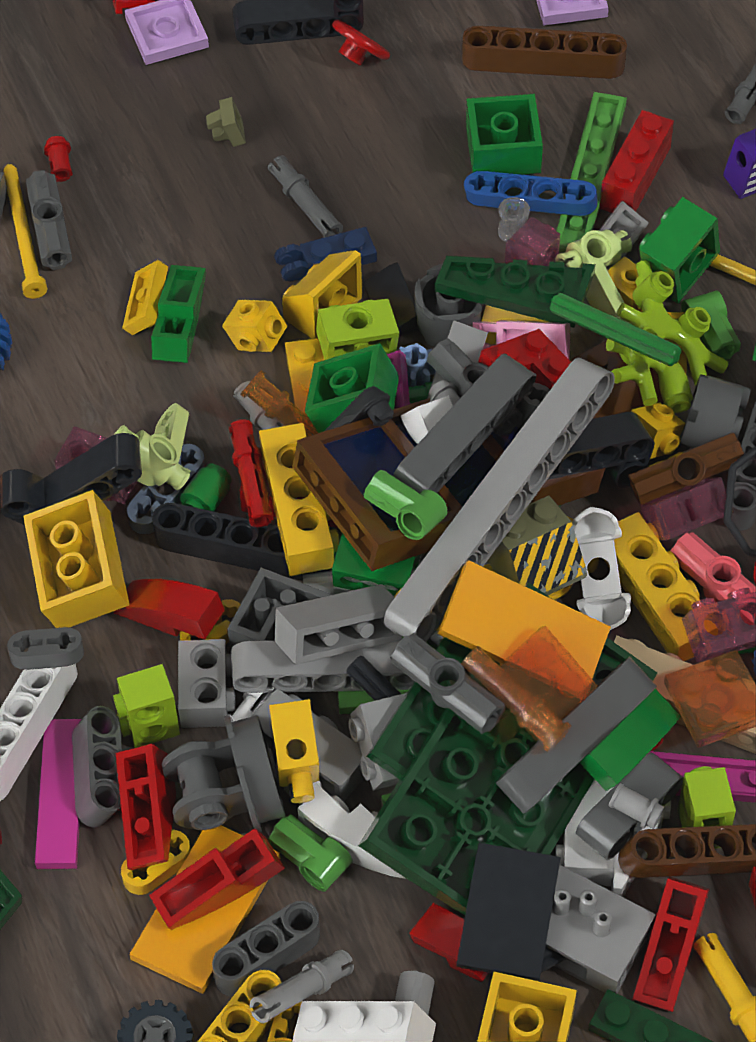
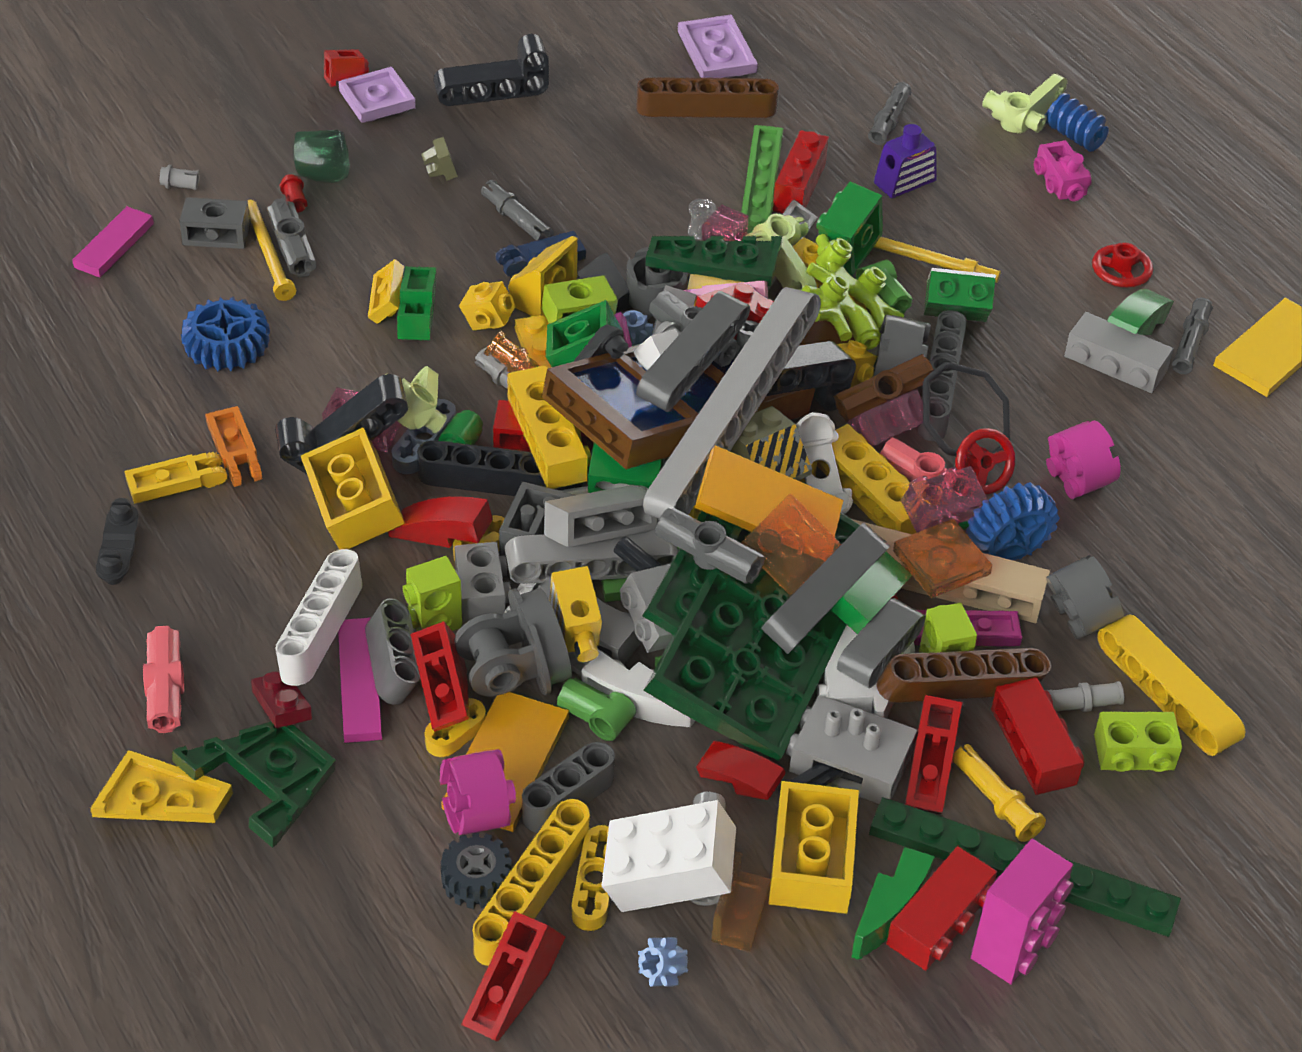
camera: 10 degrees left, 10 degrees down
(45, 648) = (335, 555): dark grey beam -> none
(93, 114) = (321, 155): none -> clear green piece
(162, 956) = (476, 792): none -> dark pink brick
(217, 880) = (521, 728): red slope -> none
(248, 460) = (499, 402): red pin -> none
(314, 979) = (615, 805): light grey pin -> none
(358, 44) = (547, 96): red piece -> none
(414, 511) = (659, 412): bright green piece -> none
(504, 134) = (684, 156): green brick -> none
(508, 911) = (786, 732): black tile -> none
(530, 711) = (787, 560): clear orange pin -> none
(532, 187) = (748, 197): blue beam -> none
(615, 329) = (810, 278): green axle -> none
(636, 806) = (890, 635): light grey pin -> none

